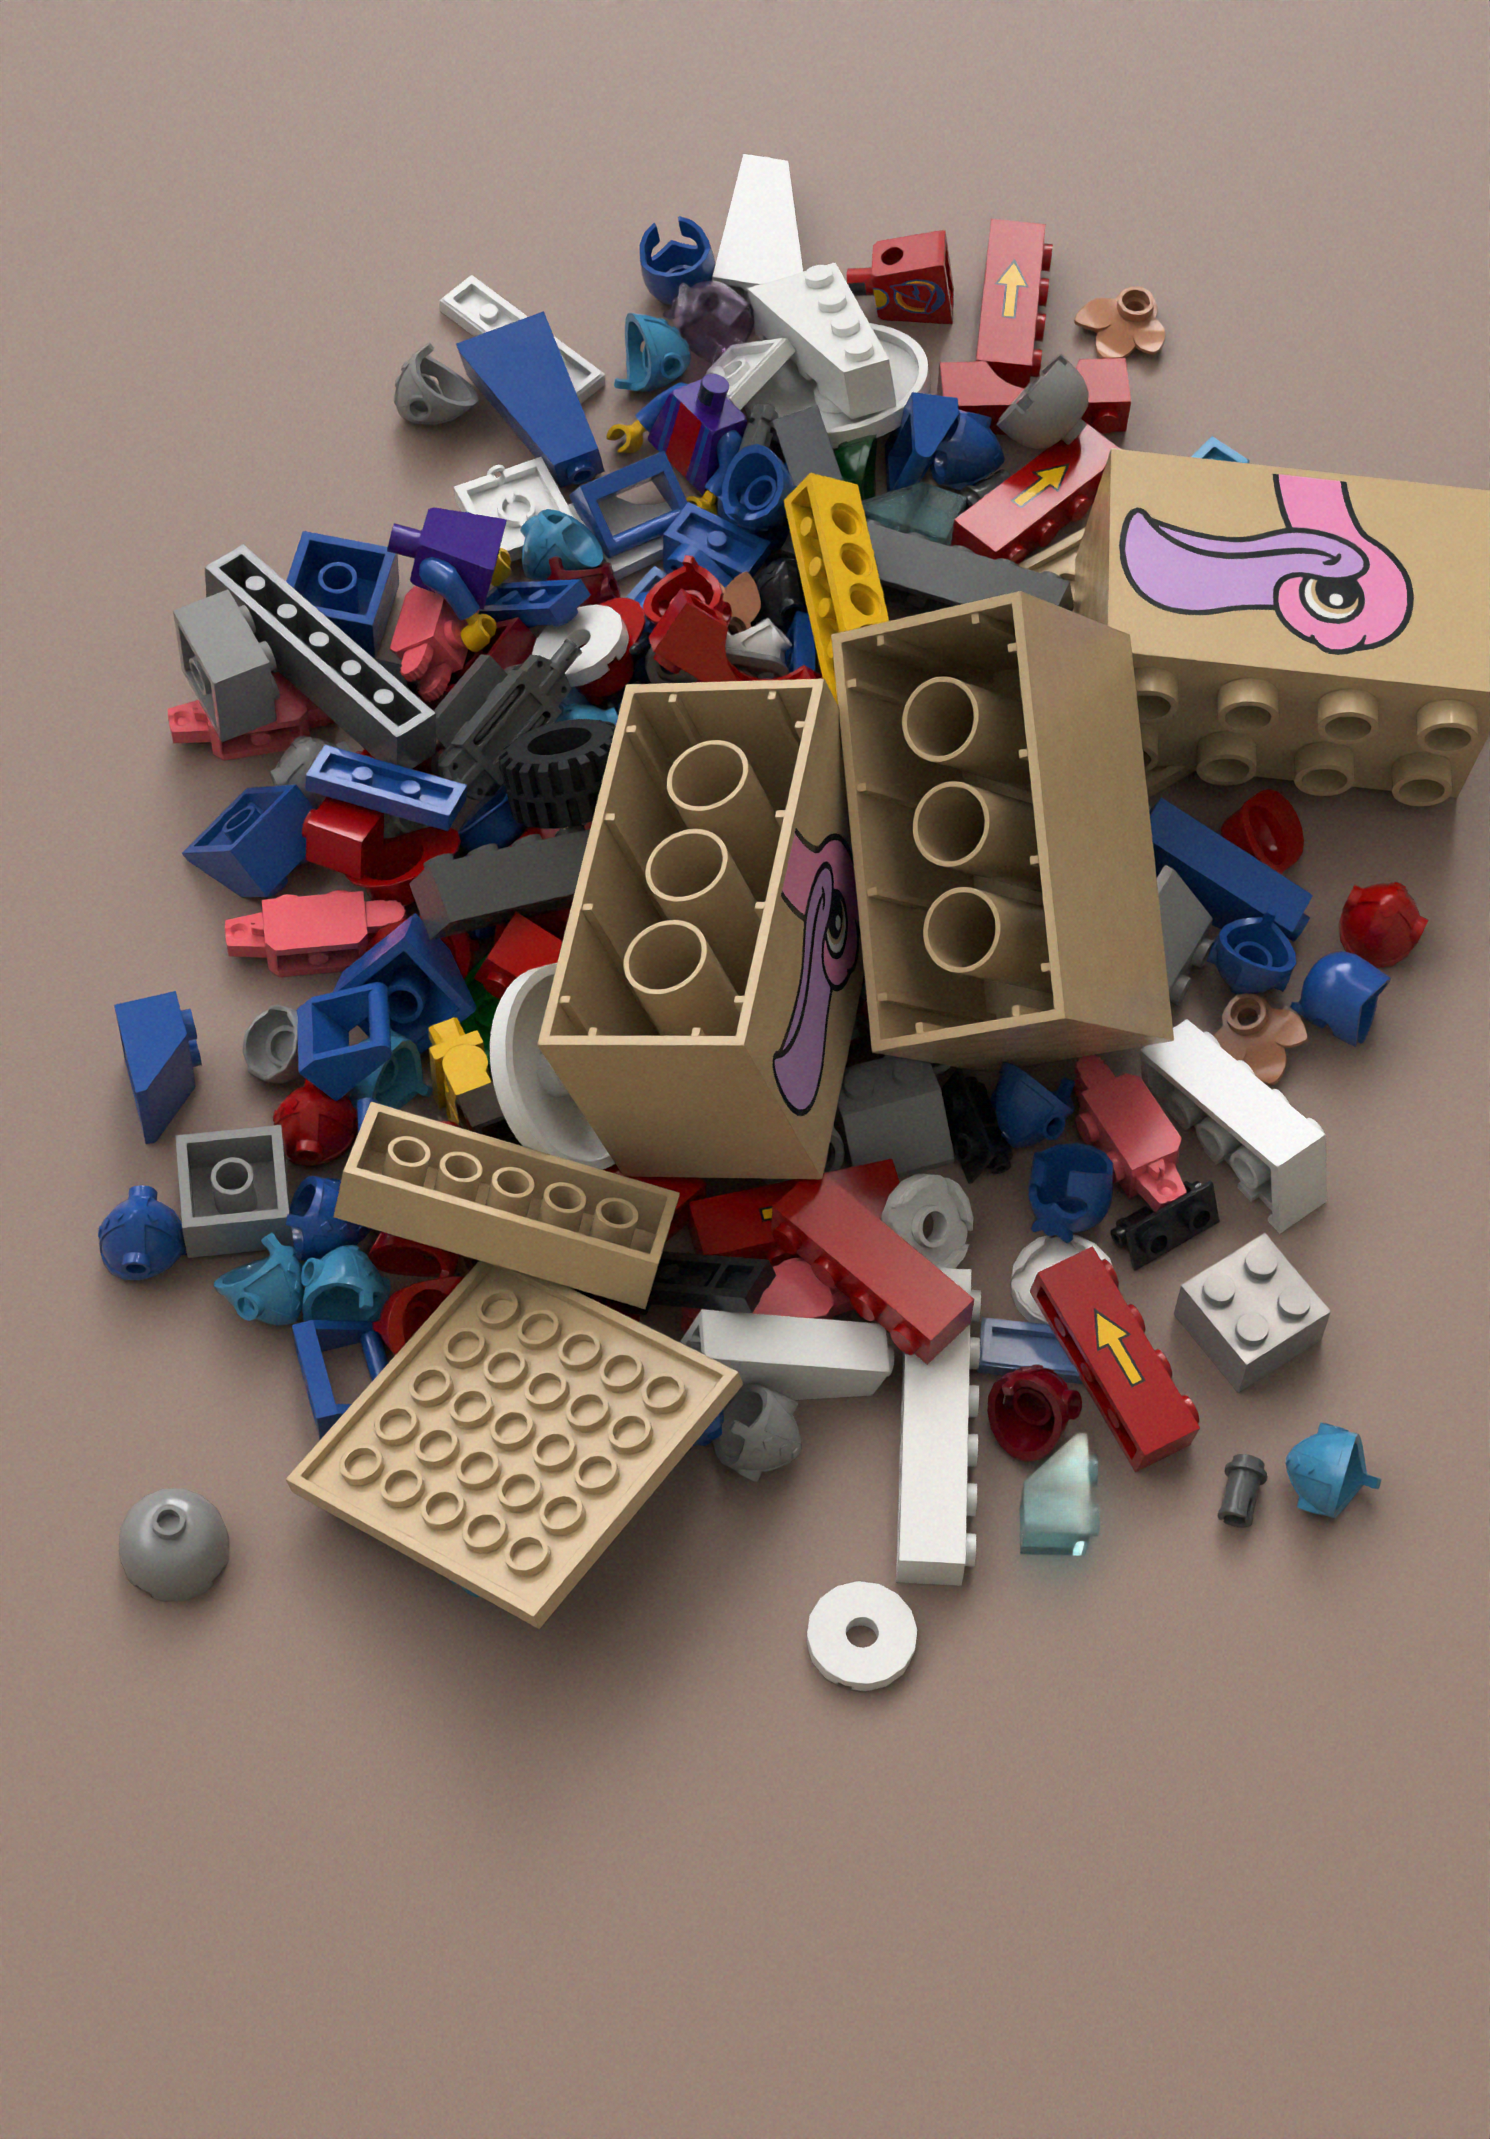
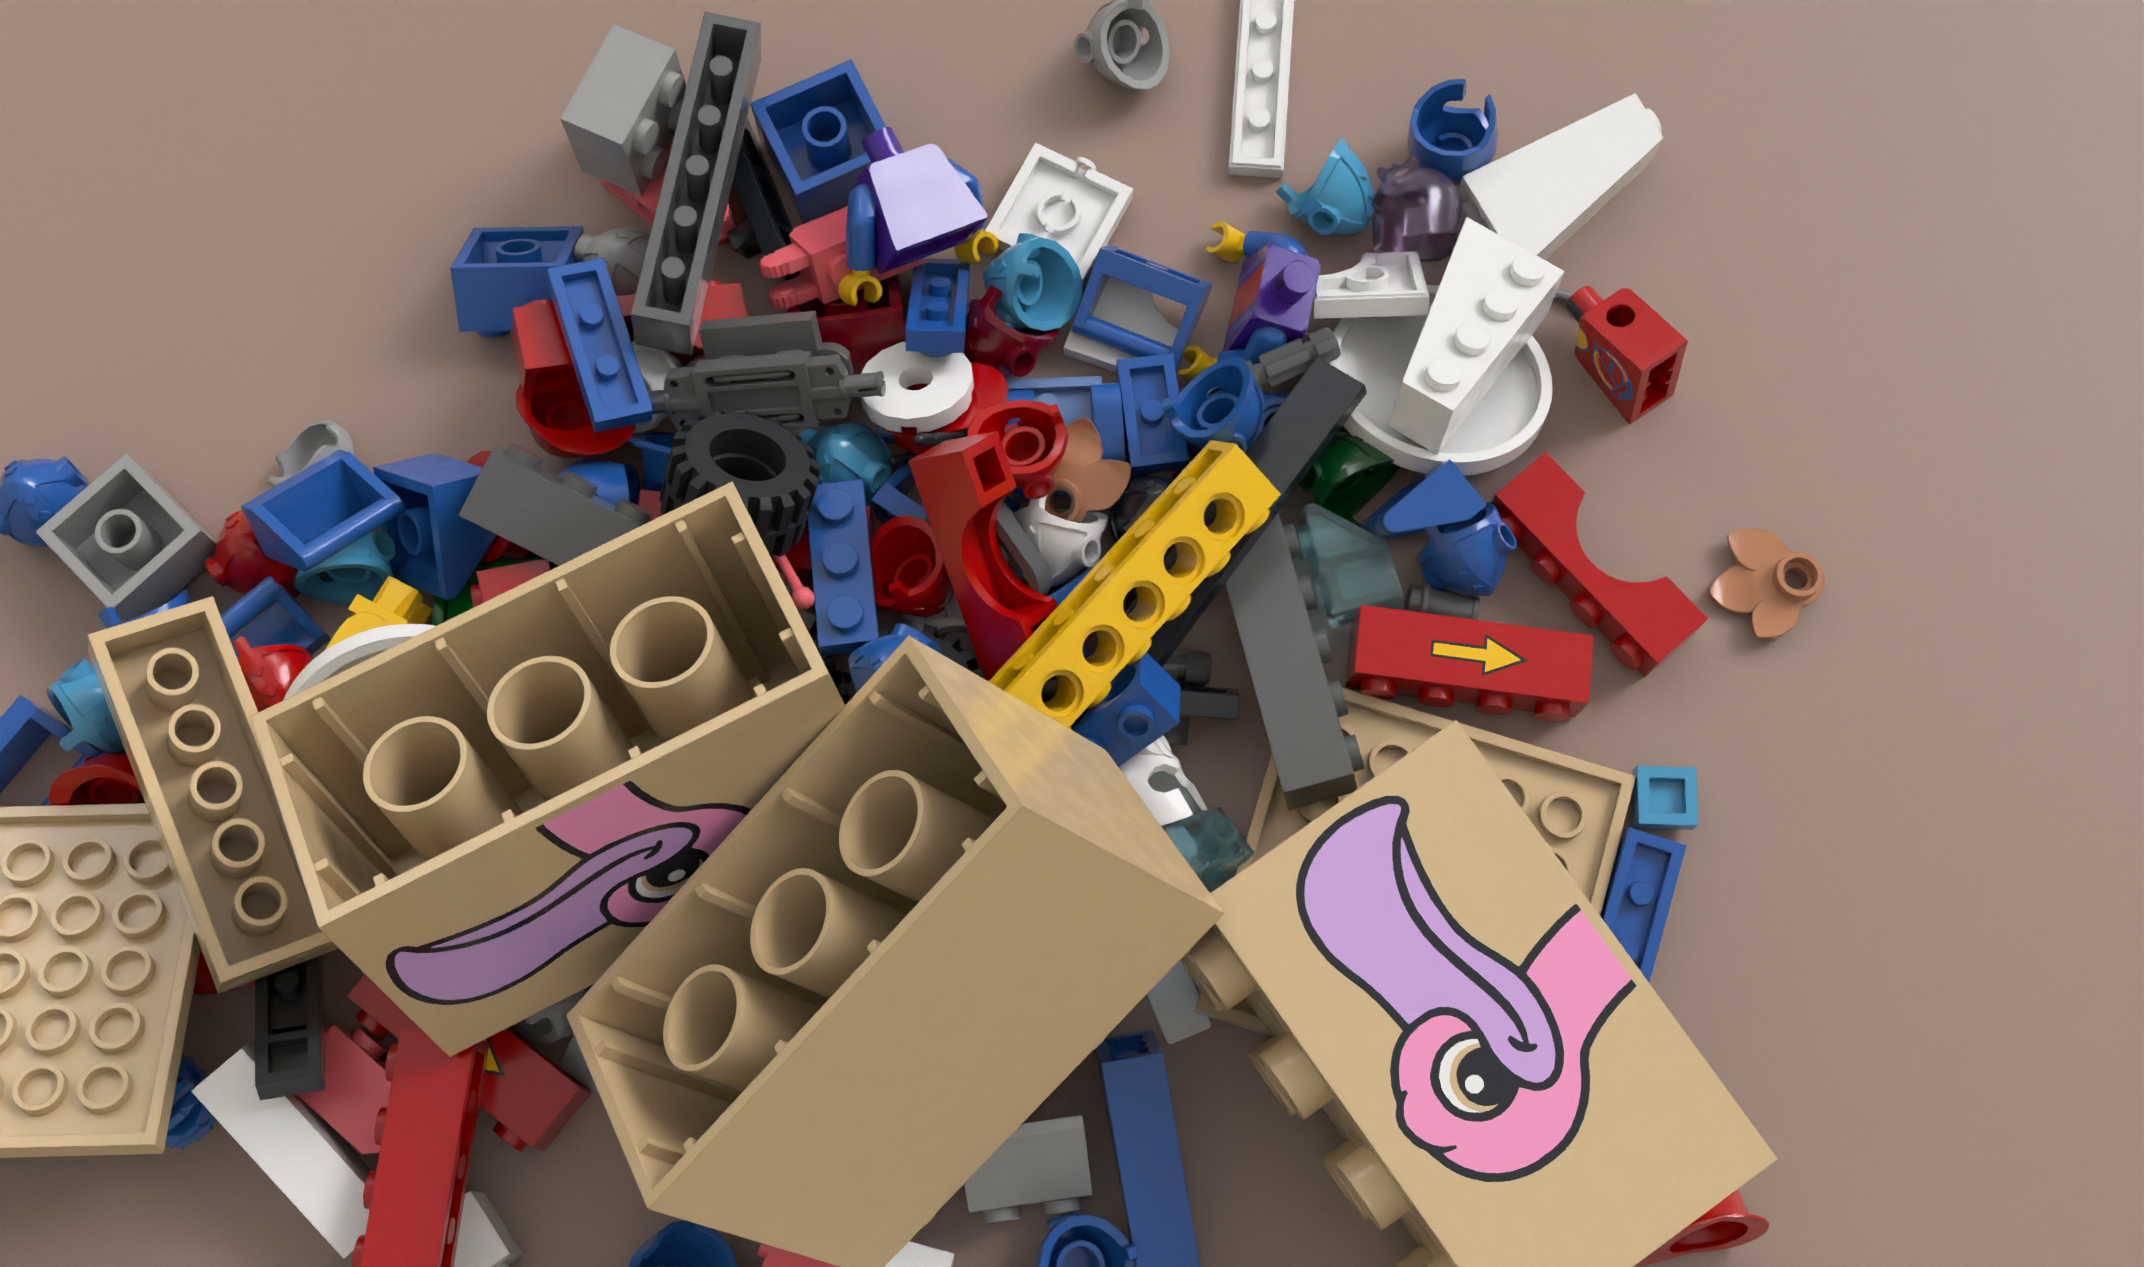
camera: 55 degrees right, 15 degrees up
(159, 1057) = (203, 377): blue slope -> none
(266, 1287) = (52, 634): dark azure helmet -> none
(311, 931) = (455, 393): coral hinge -> none
(532, 391) = (1194, 133): blue slope -> none
(758, 1432) = (206, 1182): light grey helmet -> none
(950, 1212) = (536, 1147): white tile -> none
(1011, 300) = (1687, 462): brick -> none
(1048, 408) = (1560, 595): light grey cylinder -> none
(1267, 830) = (1246, 1170): red piece -> none

